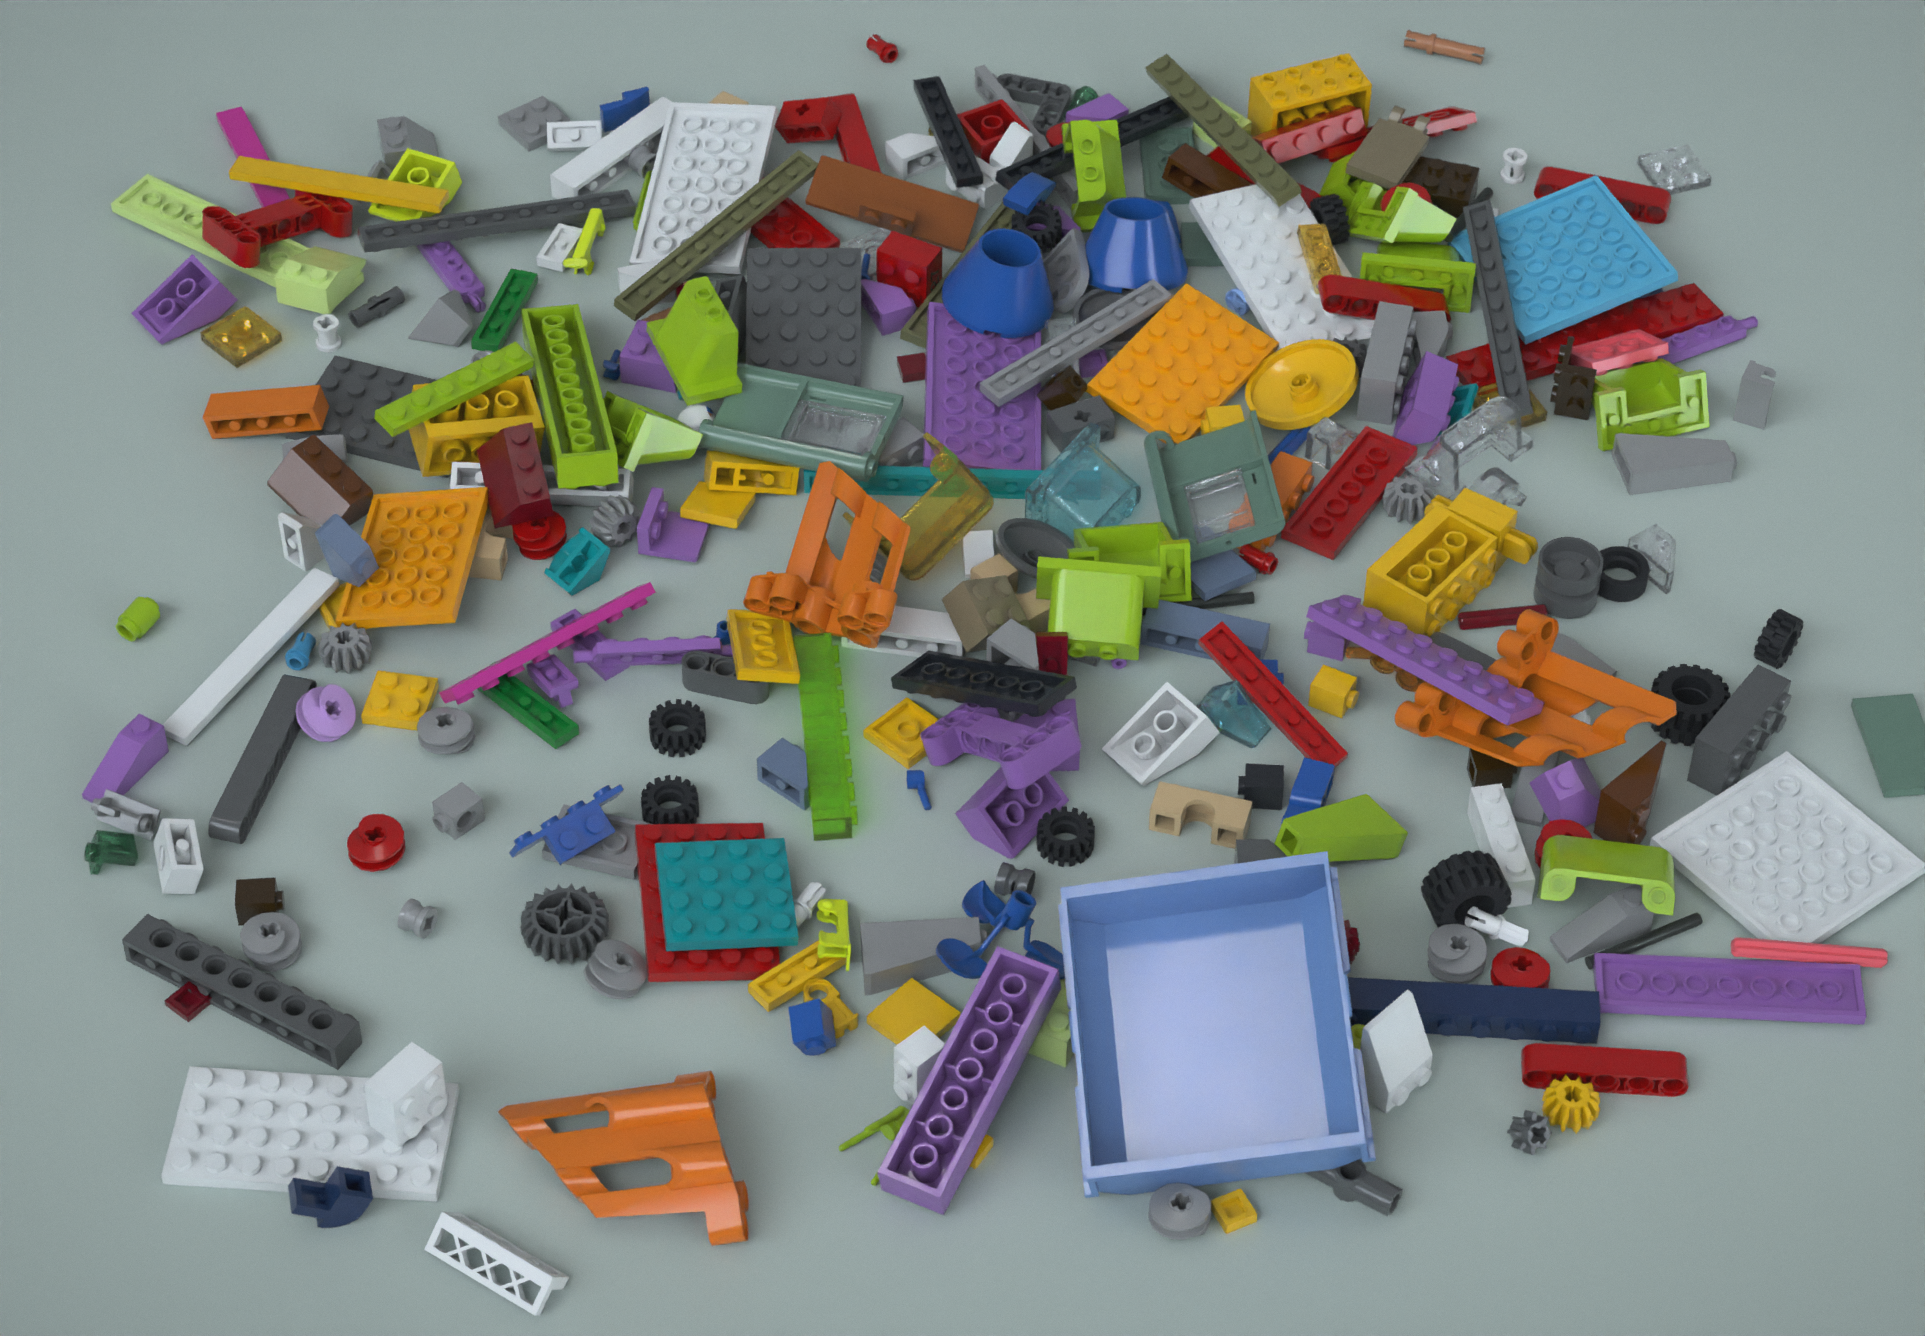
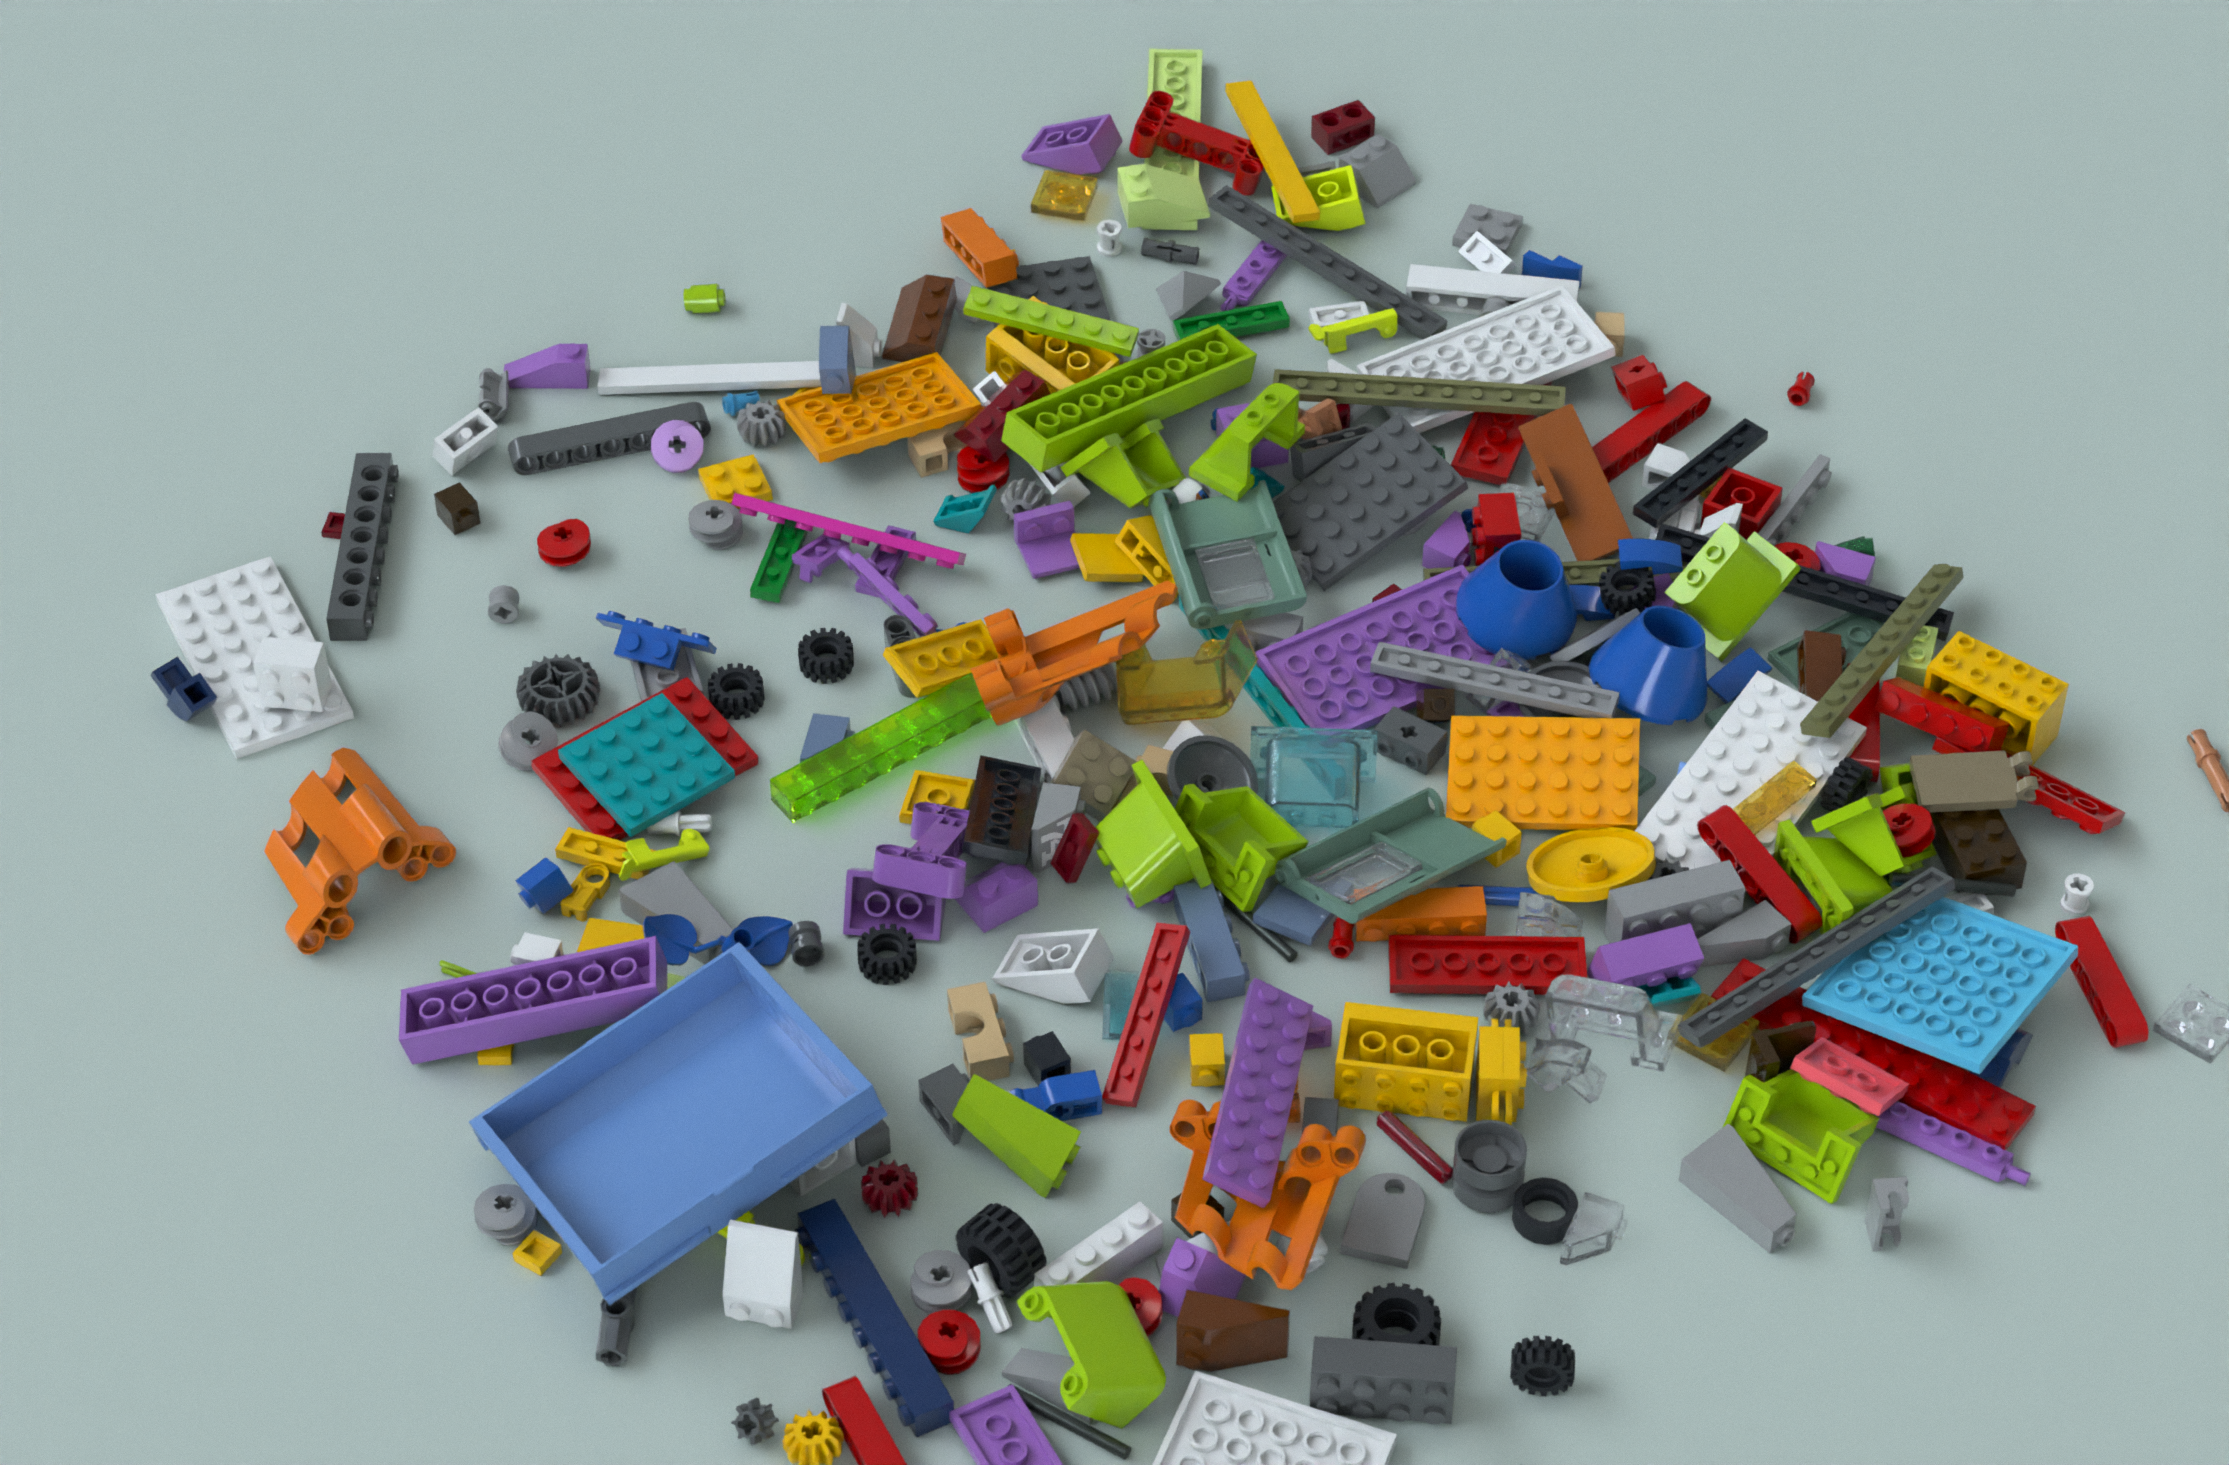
camera: 60 degrees right, 0 degrees up
(111, 849) = (452, 404): clear green bracket -> none
(247, 144) = (1294, 88): dark pink tile -> none
(271, 941) = (423, 536): light grey piece -> none
(331, 140) = (1342, 127): none -> dark red brick
(458, 811) = (633, 571): light grey brick -> none
(501, 1250) = (192, 815): white fence -> none
(916, 780) = (882, 832): blue hand -> none
(1051, 97) = (1842, 525): dark grey beam -> none

